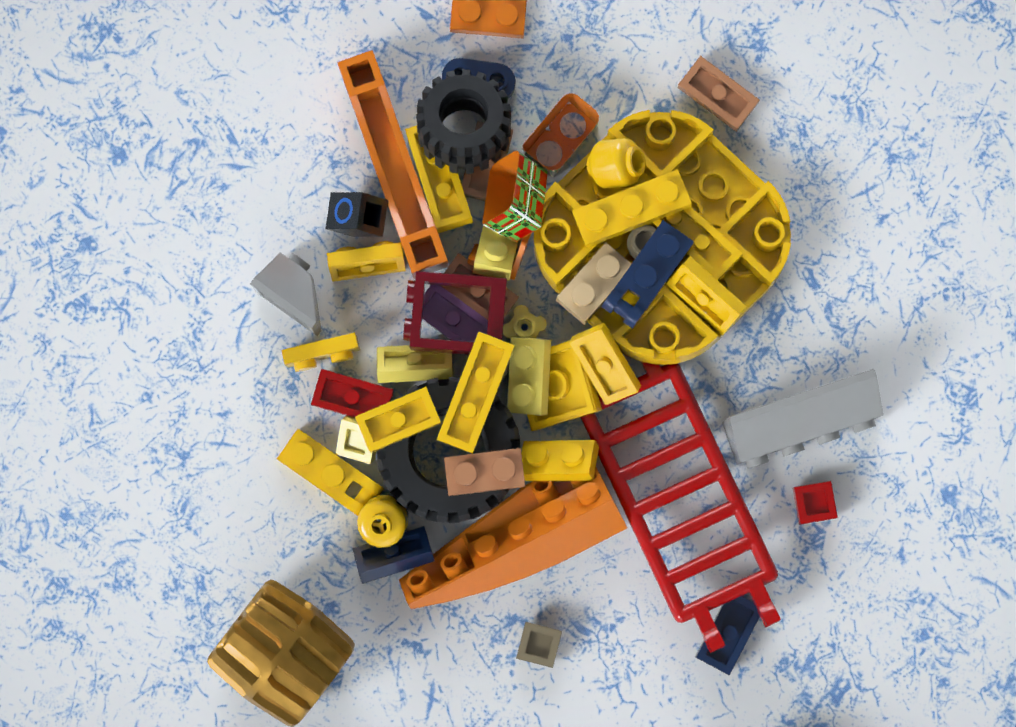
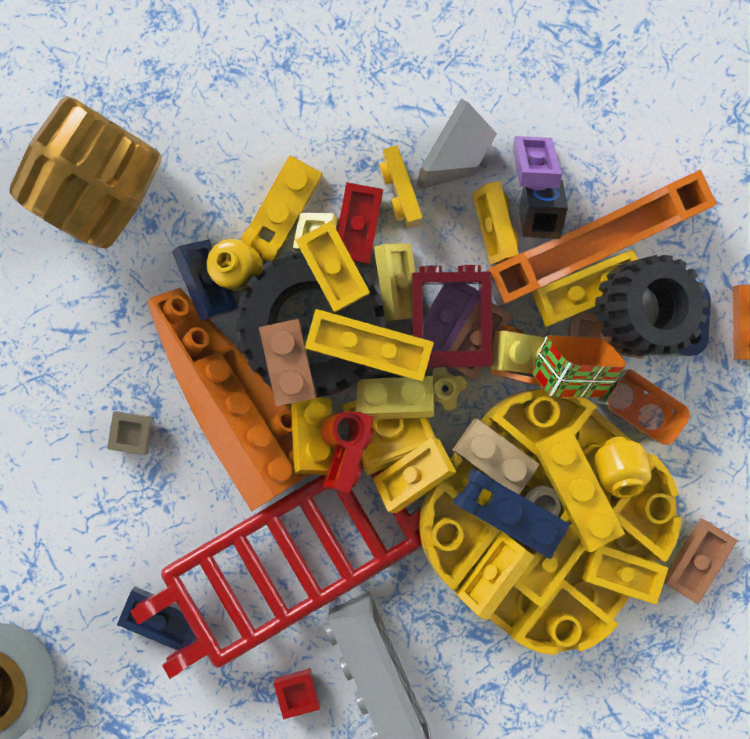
camera: 85 degrees right, 5 degrees up
(311, 216) = (536, 162): none -> medium lavender plate
(588, 429) = (344, 466): none -> red plate
(719, 170) = (625, 574): none -> yellow plate

